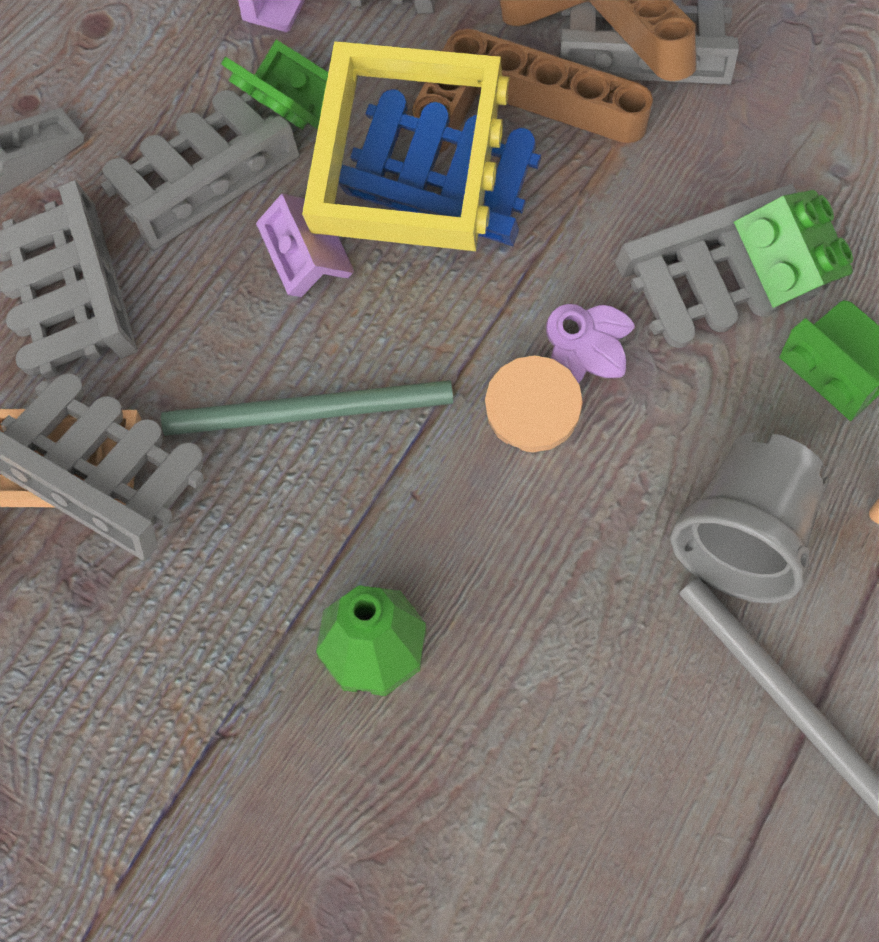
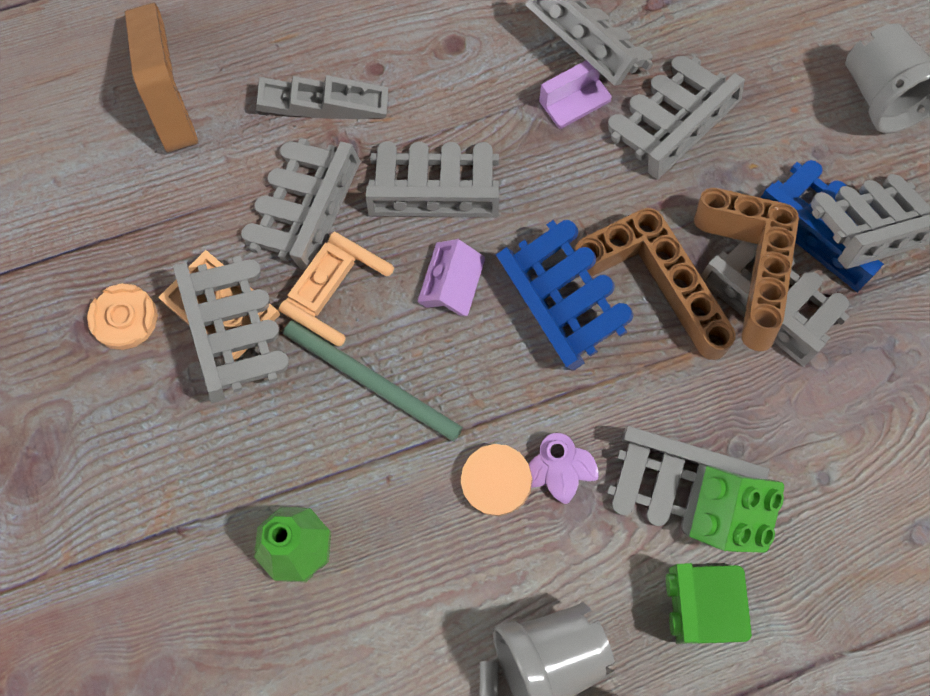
camera: 40 degrees right, 5 degrees up
(160, 346) = (322, 280): none -> light nougat plate
(284, 84) = (521, 170): bright green bracket -> none
(410, 64) = (509, 228): light yellow window -> none

